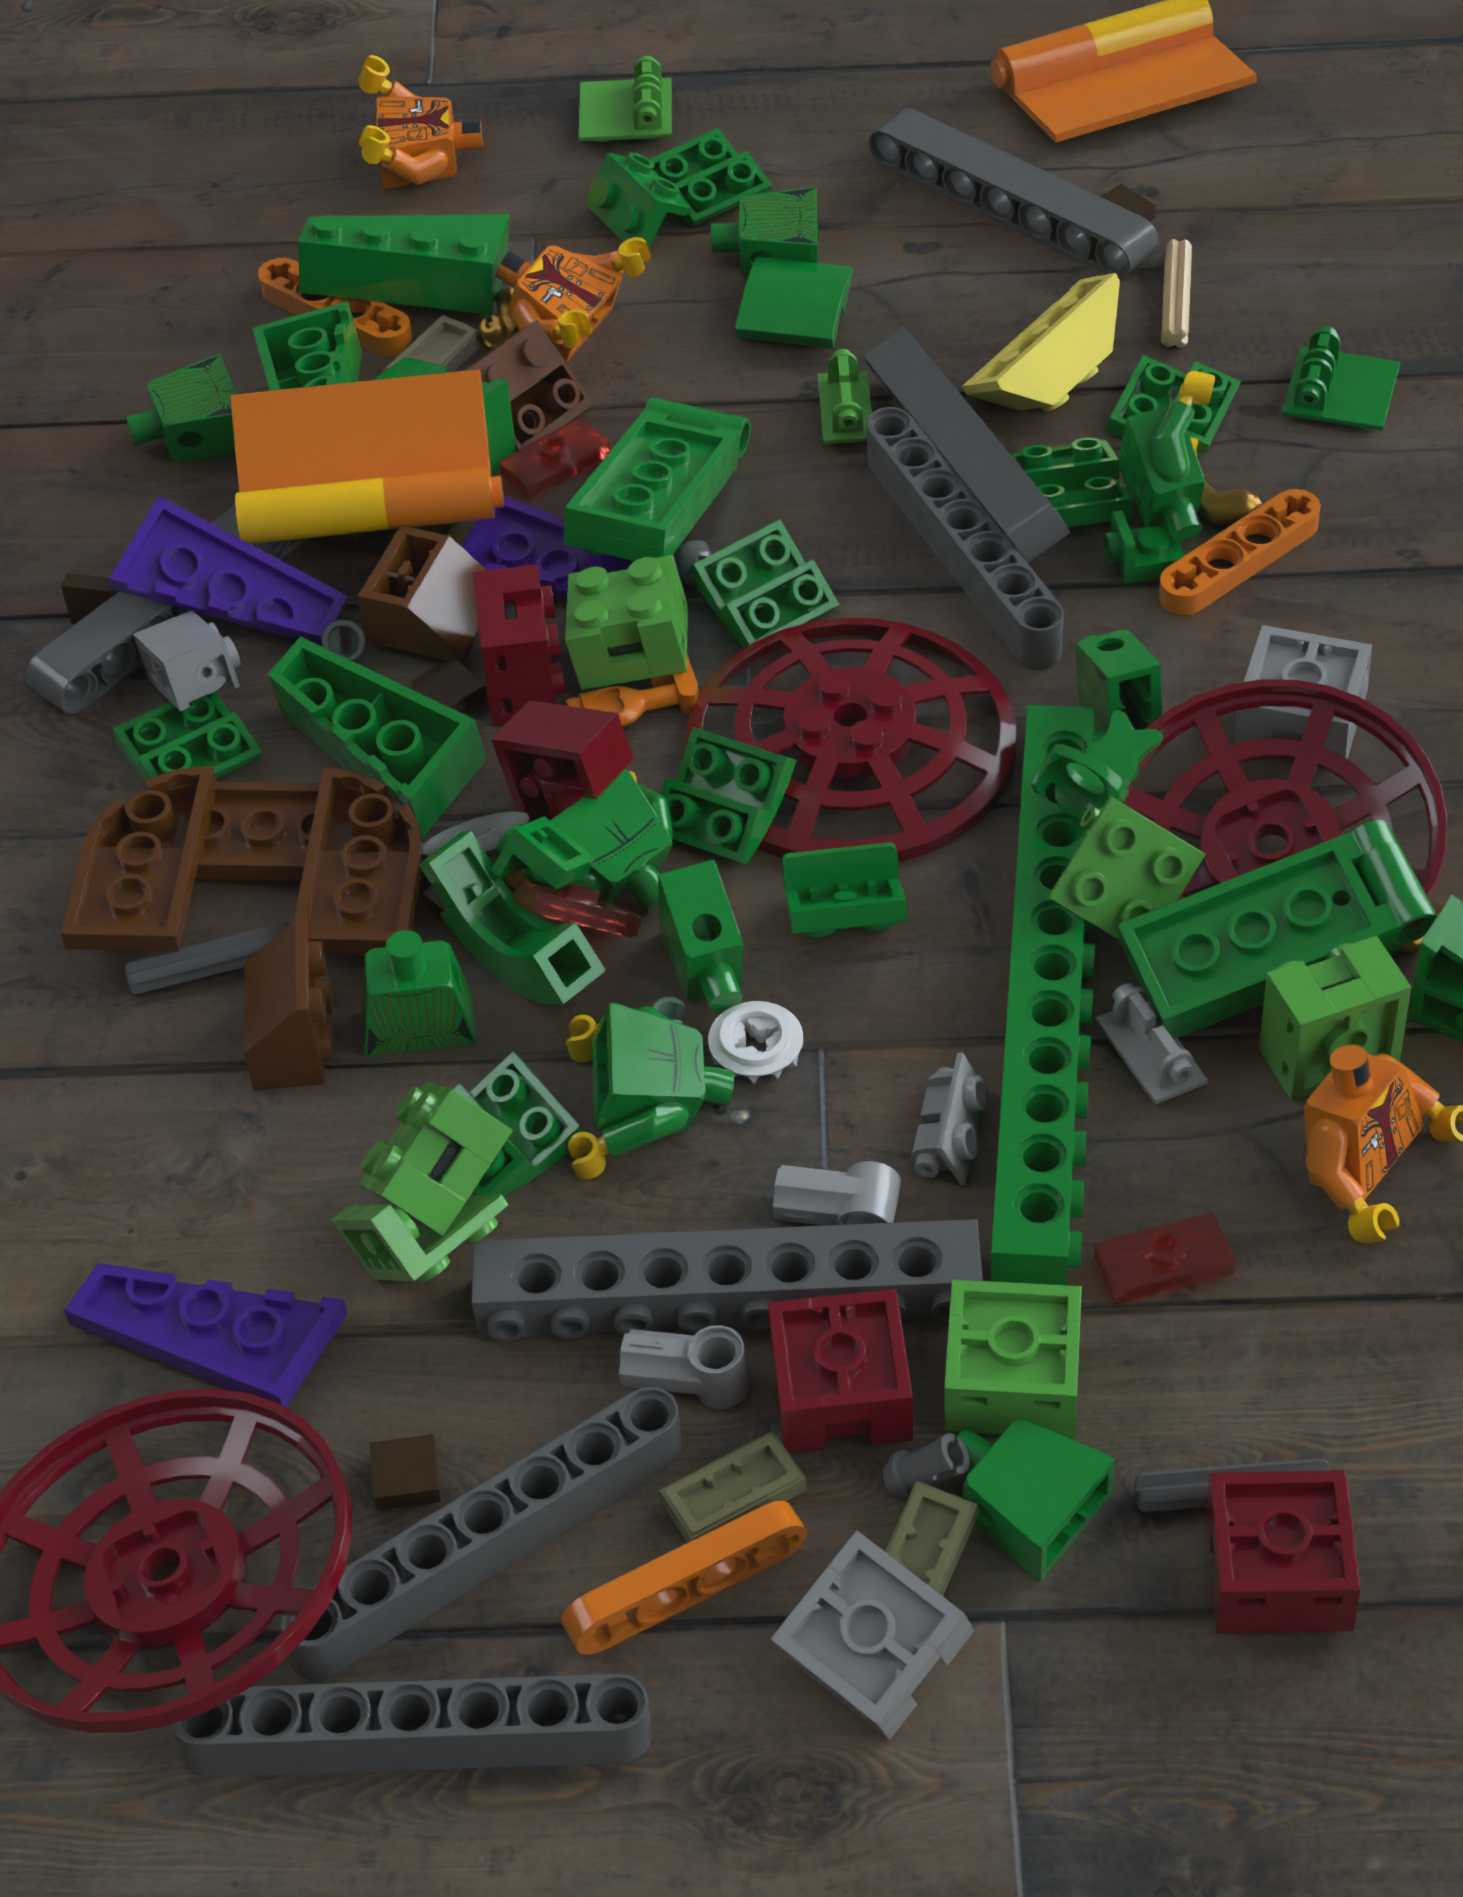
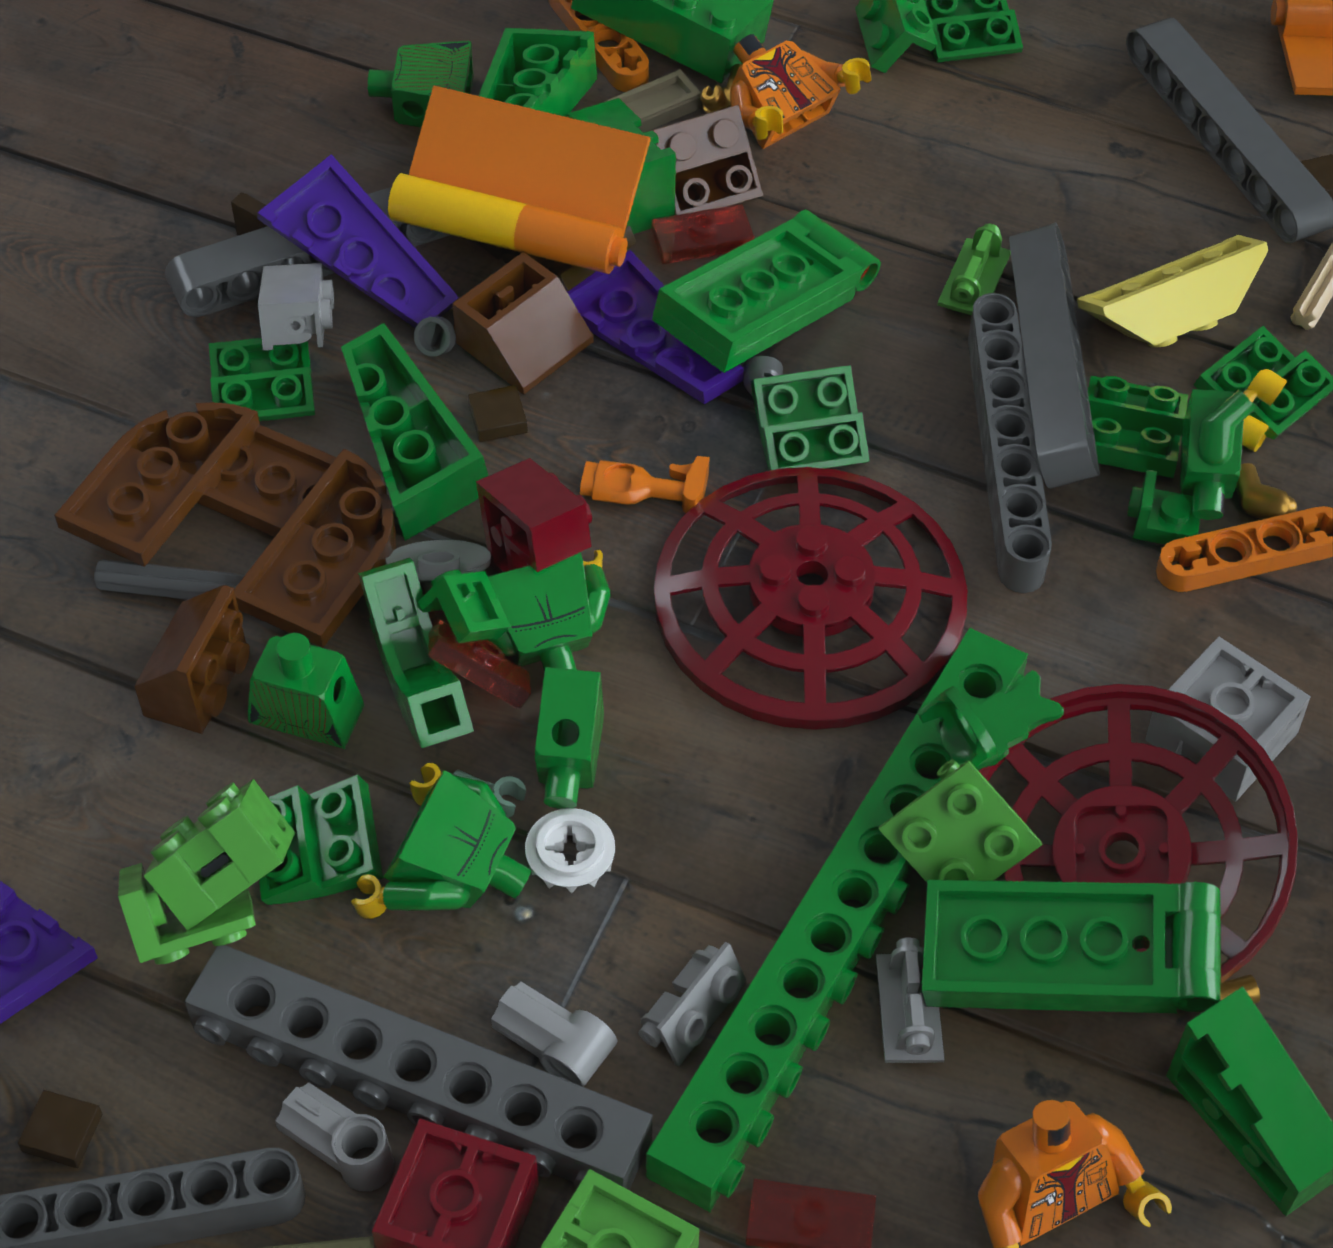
camera: 20 degrees right, 5 degrees up
(517, 640) = (563, 396): dark red piece -> none
(627, 623) = (668, 412): bright green piece -> none
(725, 794) = (665, 606): green slope -> none
(771, 227) = (997, 96): green torso -> none
(793, 302) = (981, 163): green slope -> none
(843, 889) = (719, 738): green bracket -> none
(1117, 675) = (1064, 623): green torso -> none
(1338, 1002) = (1082, 1052): bright green piece -> none

